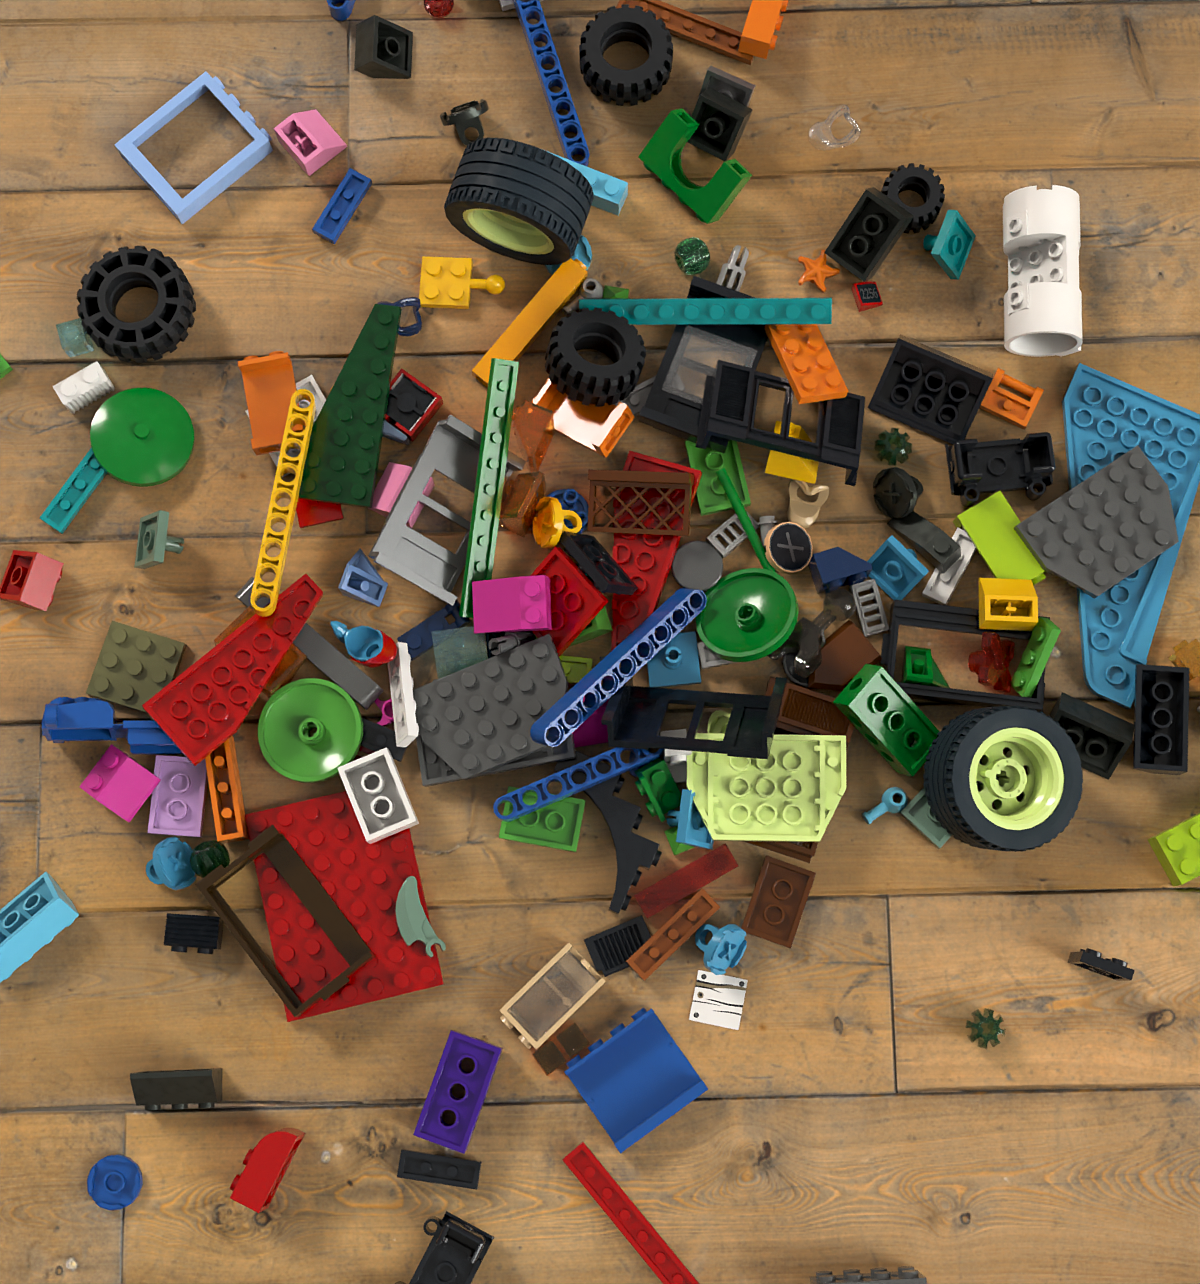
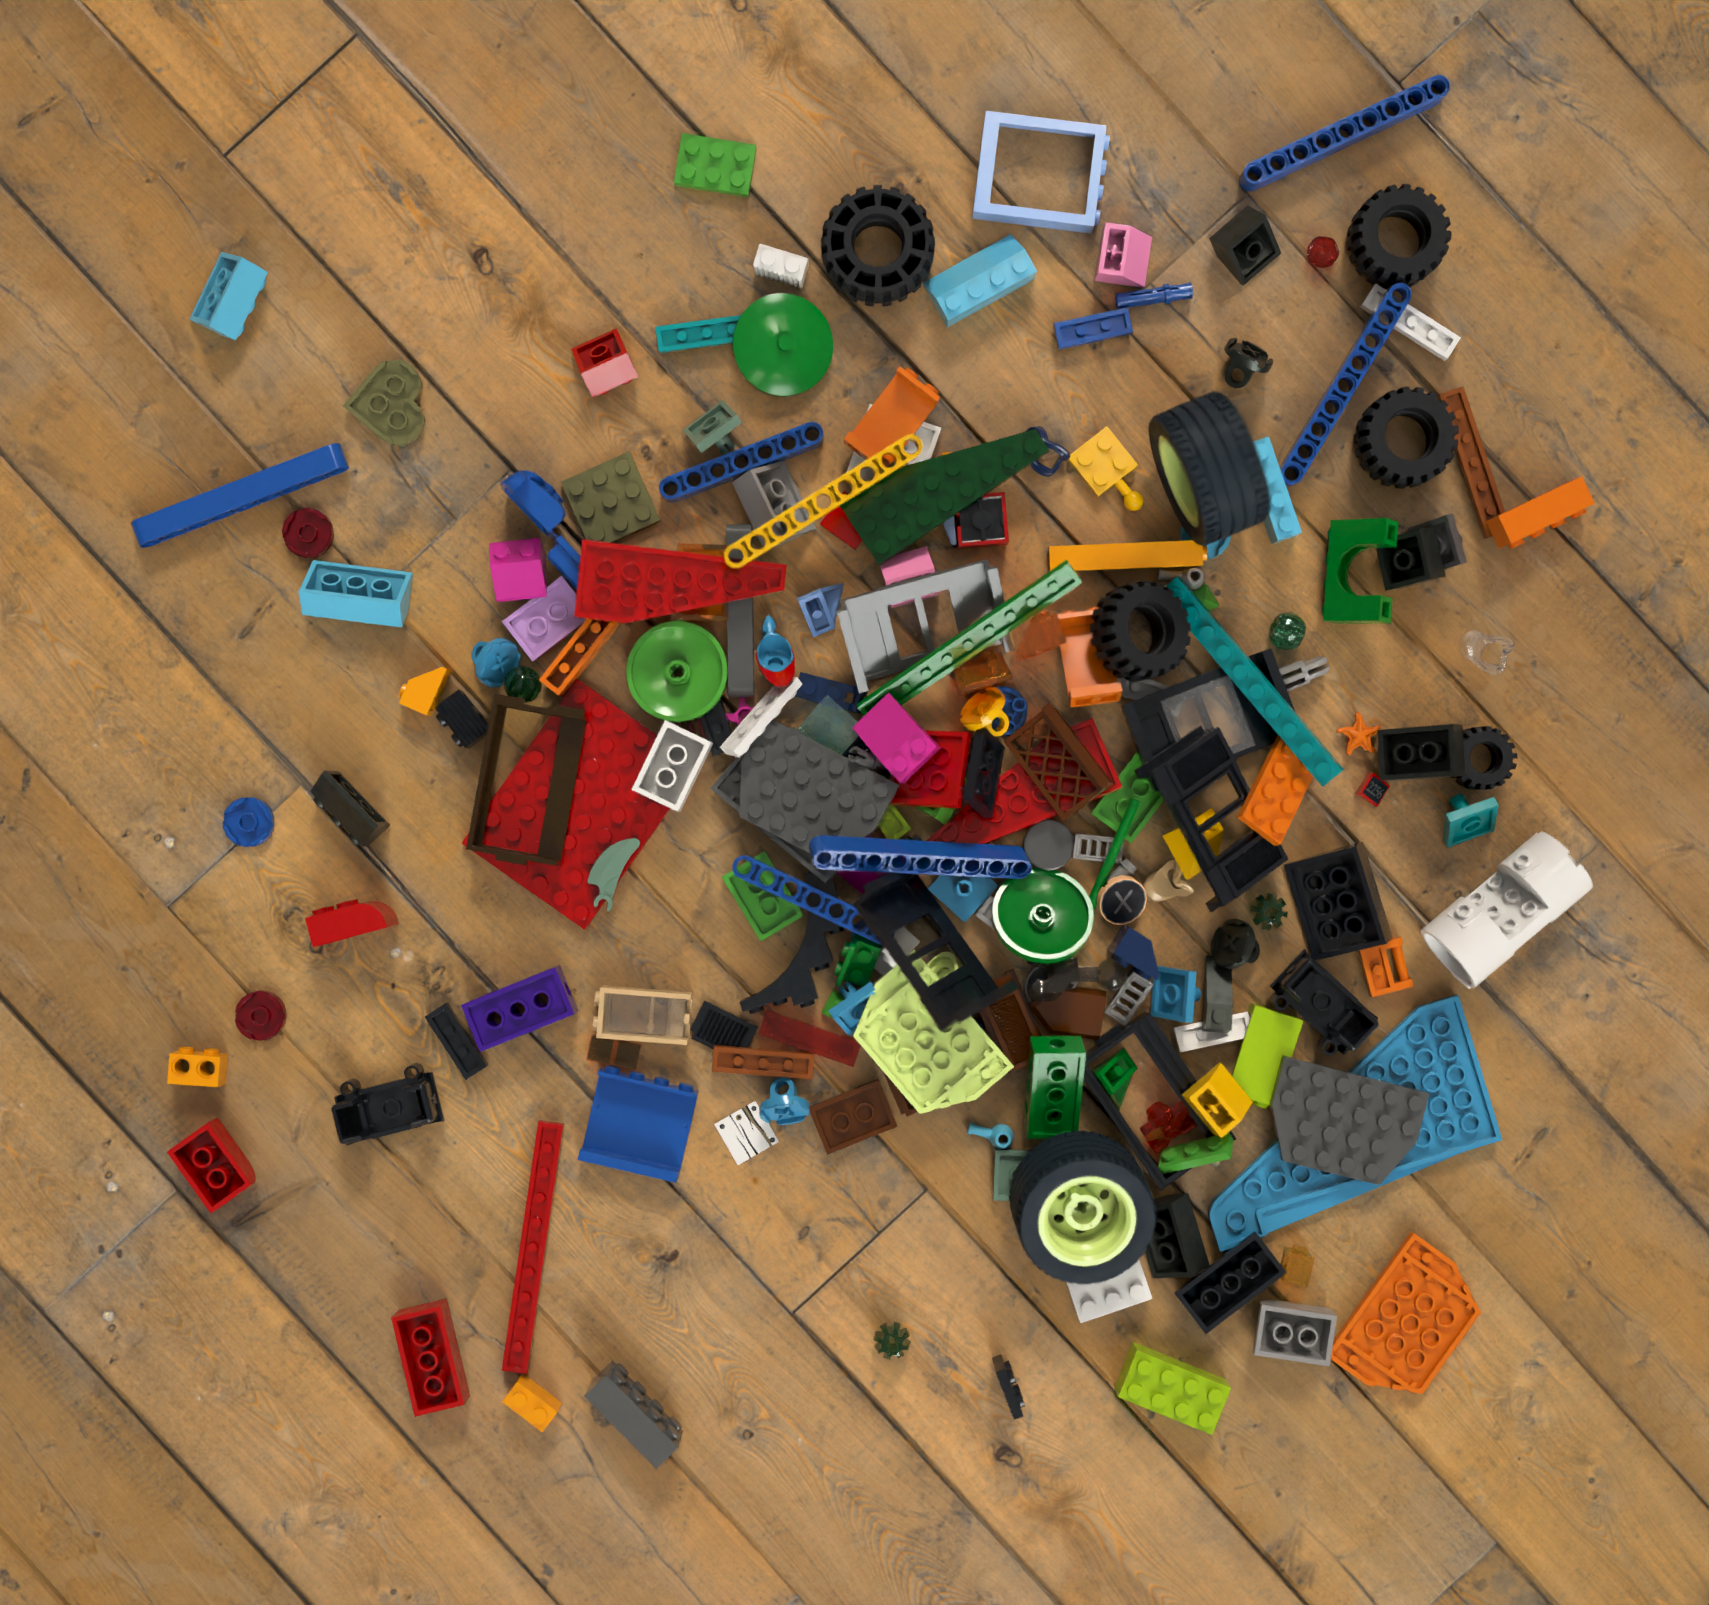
camera: 45 degrees right, 10 degrees up
(74, 338) = (811, 222): clear light blue brick -> none
(143, 942) = (424, 691): none -> light orange slope
(201, 555) = (728, 461): none -> blue beam
(232, 255) = (980, 280): none -> medium azure slope
(238, 545) = (766, 494): none -> light grey slope
(363, 138) = (1163, 294): none -> blue pin
(1092, 820) = (1111, 1295): none -> white brick

